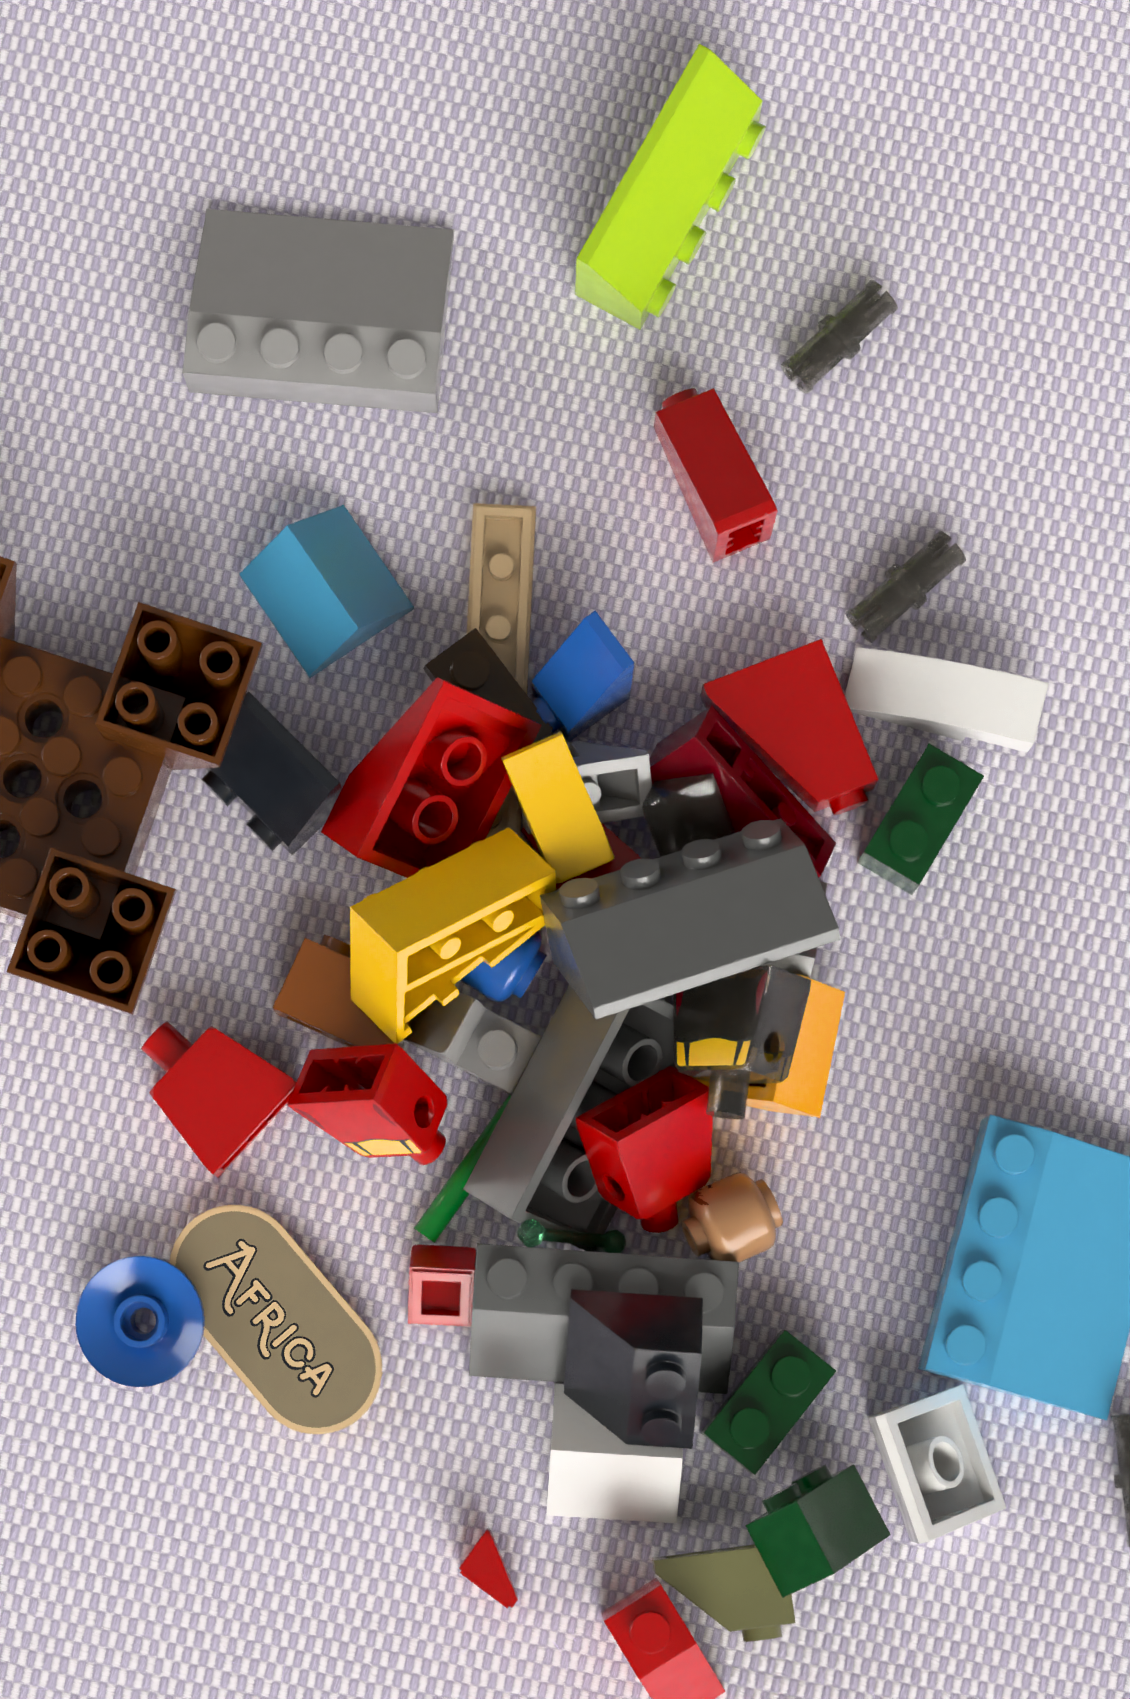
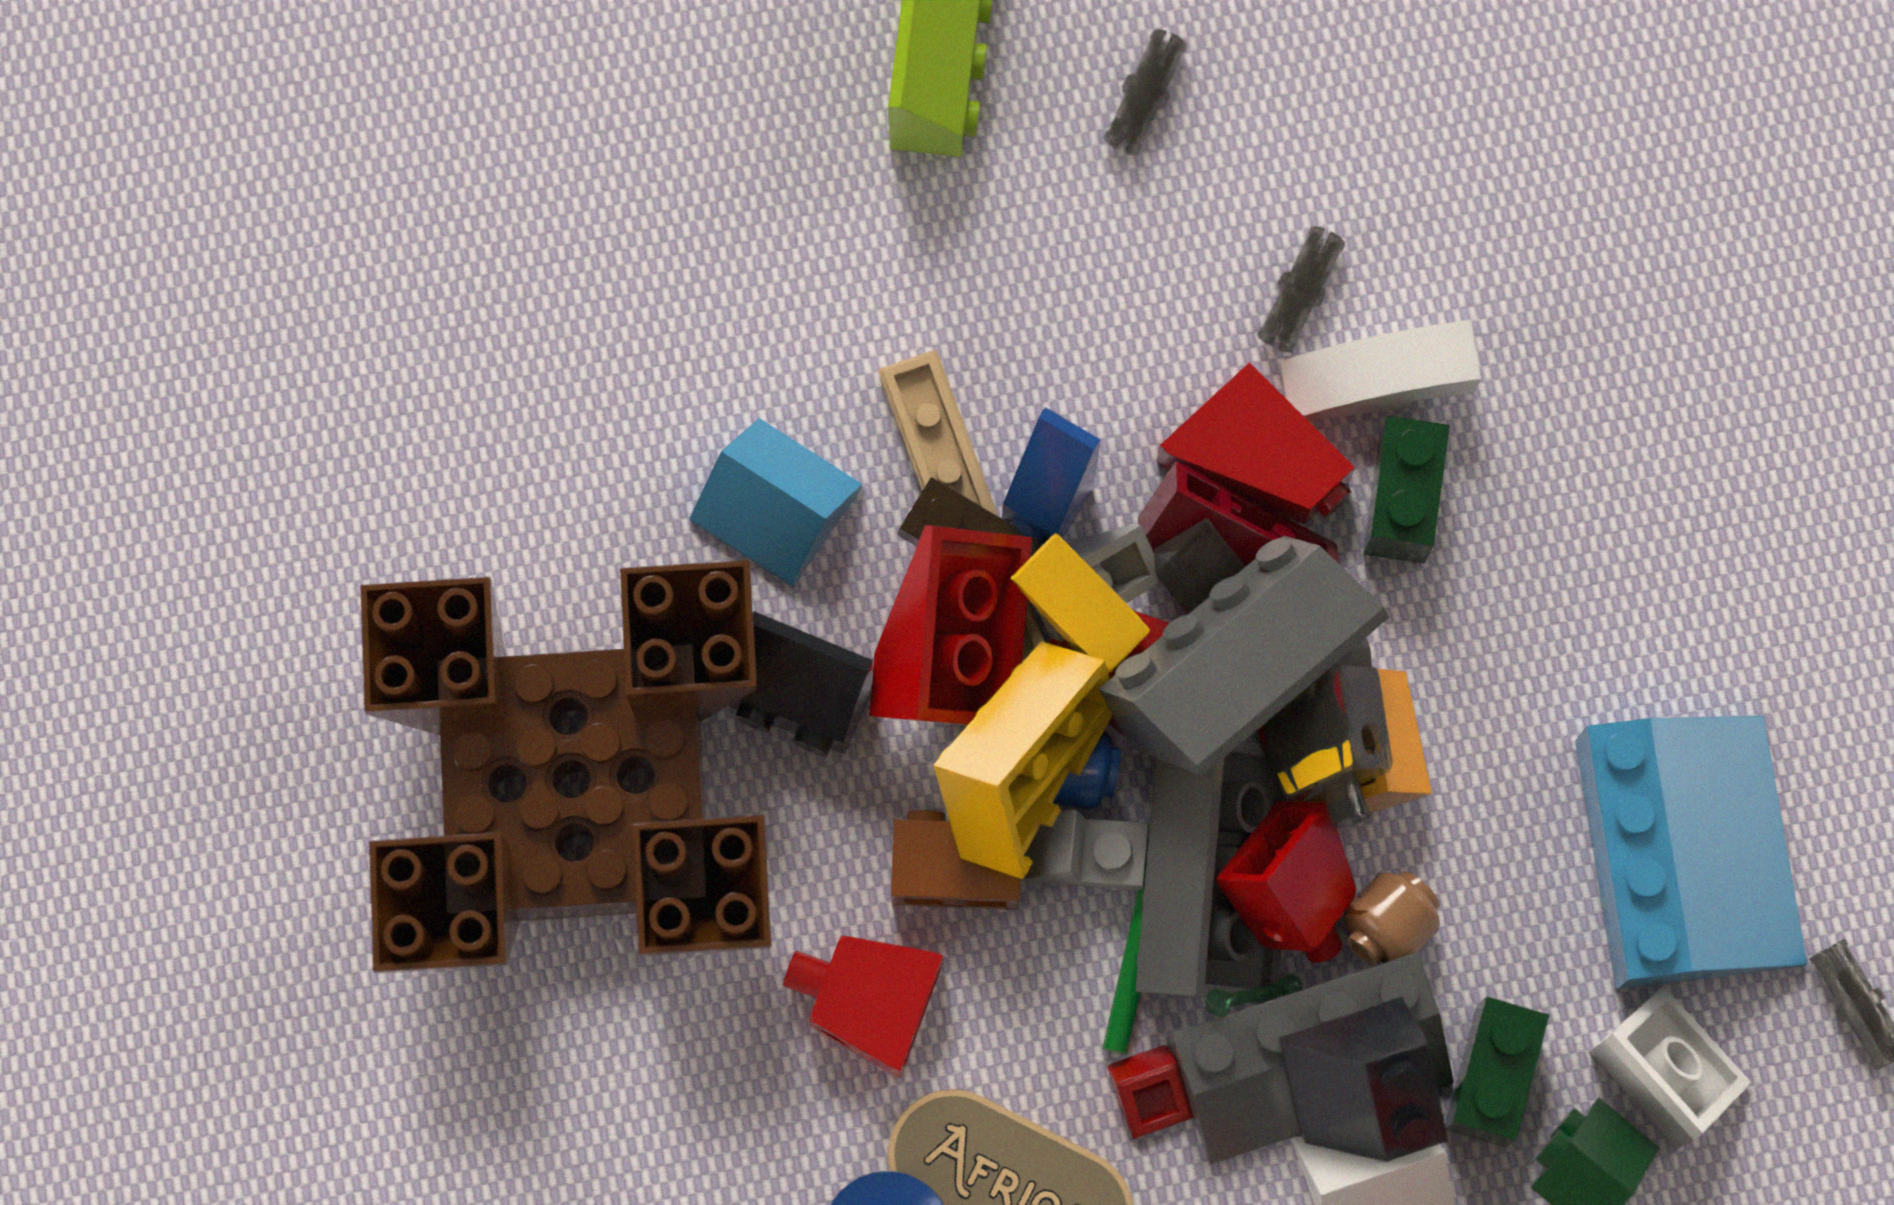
camera: 20 degrees left, 5 degrees down
(319, 311) = (666, 252): light grey slope -> none
(372, 1101) = (1019, 943): red torso -> none
(715, 473) = (1089, 254): red slope -> none

